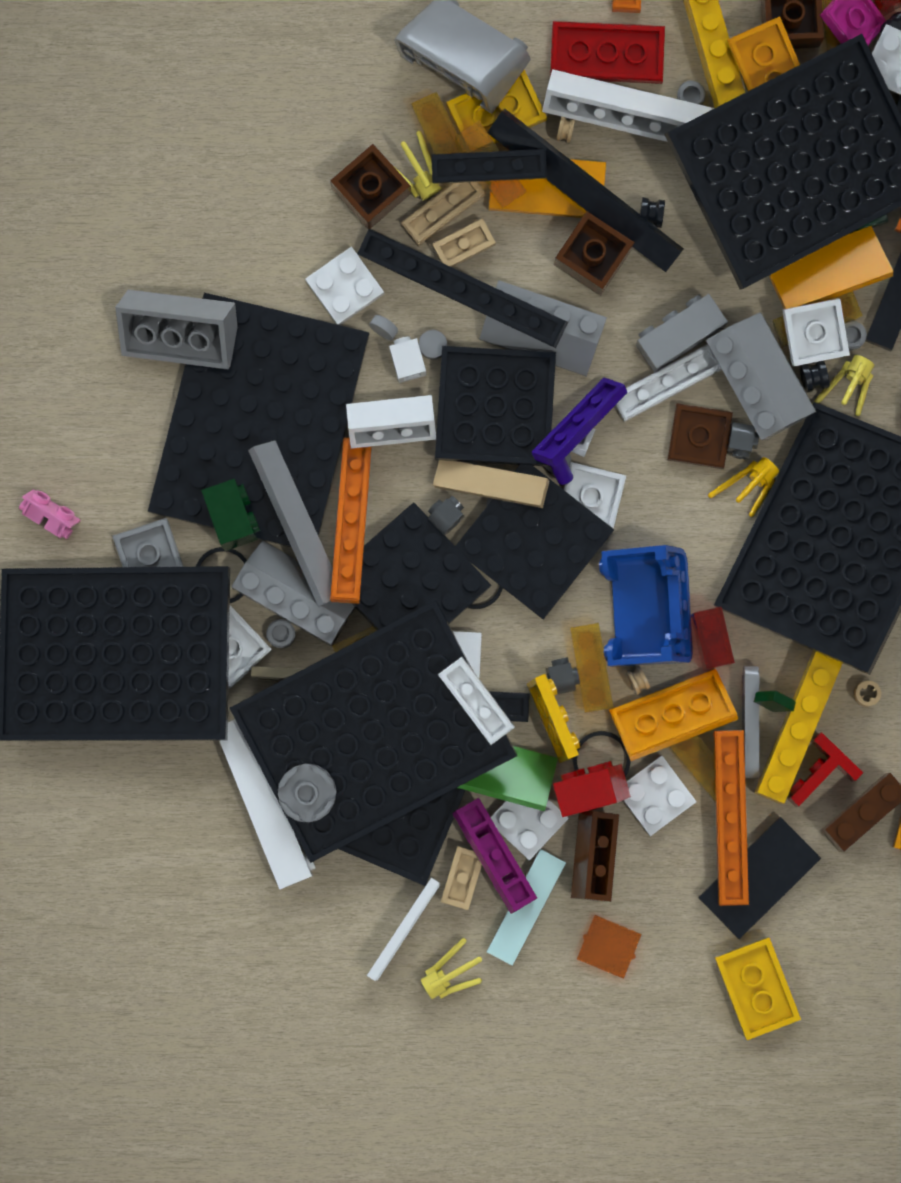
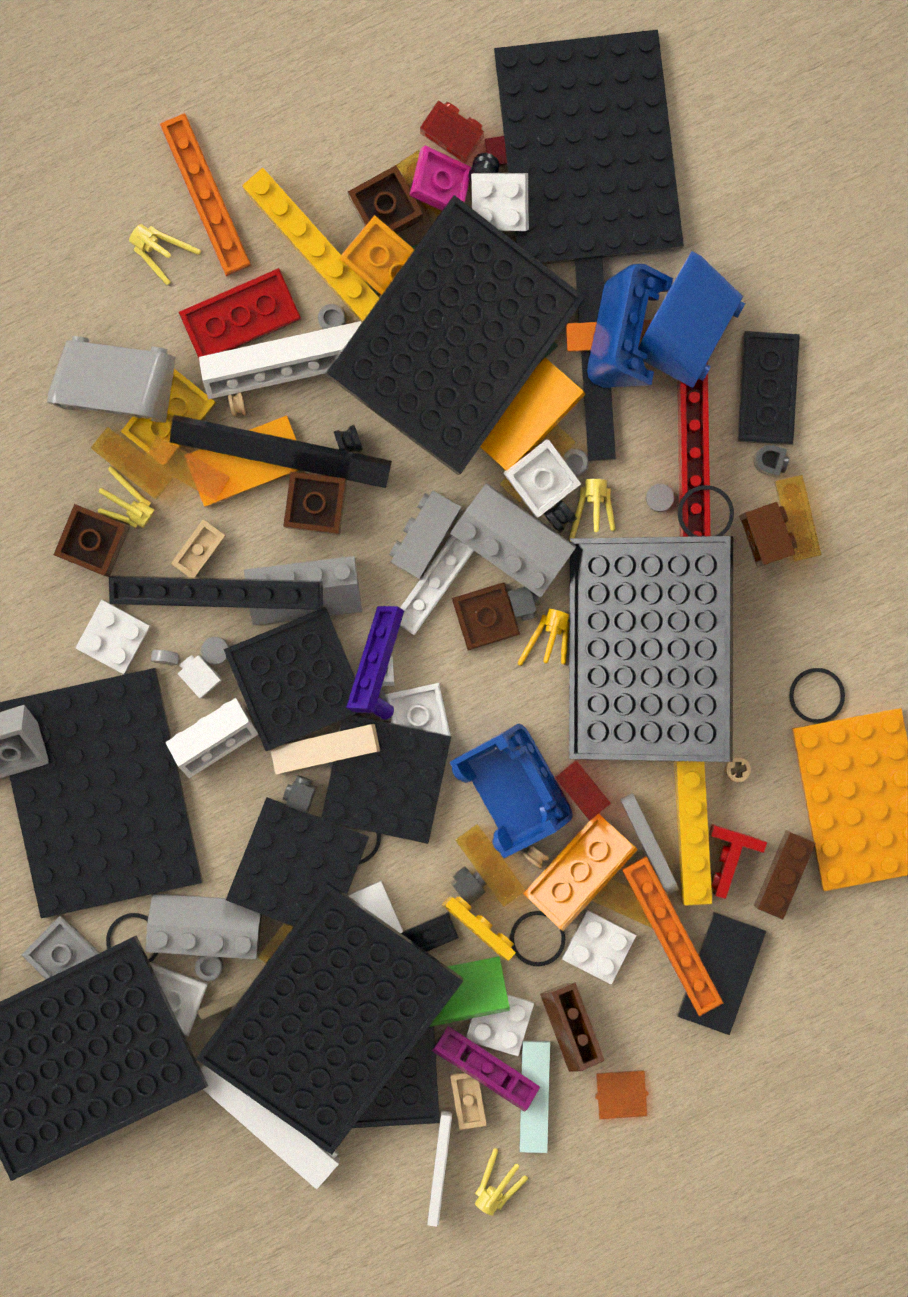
camera: 25 degrees left, 5 degrees up
(229, 514) = (113, 891): dark green brick -> none
(294, 519) = (174, 868): light grey tile -> none
(307, 793) = (299, 1098): light grey tile -> none
(350, 524) = (221, 845): orange tile -> none
(441, 210) = (164, 526): tan tile -> none
(476, 700) = (405, 952): white tile -> none
(489, 166) = (186, 473): black tile -> none
(591, 790) = (541, 973): red brick -> none
(757, 988) = (765, 1069): yellow plate -> none
(774, 701) = (661, 819): dark green tile -> none

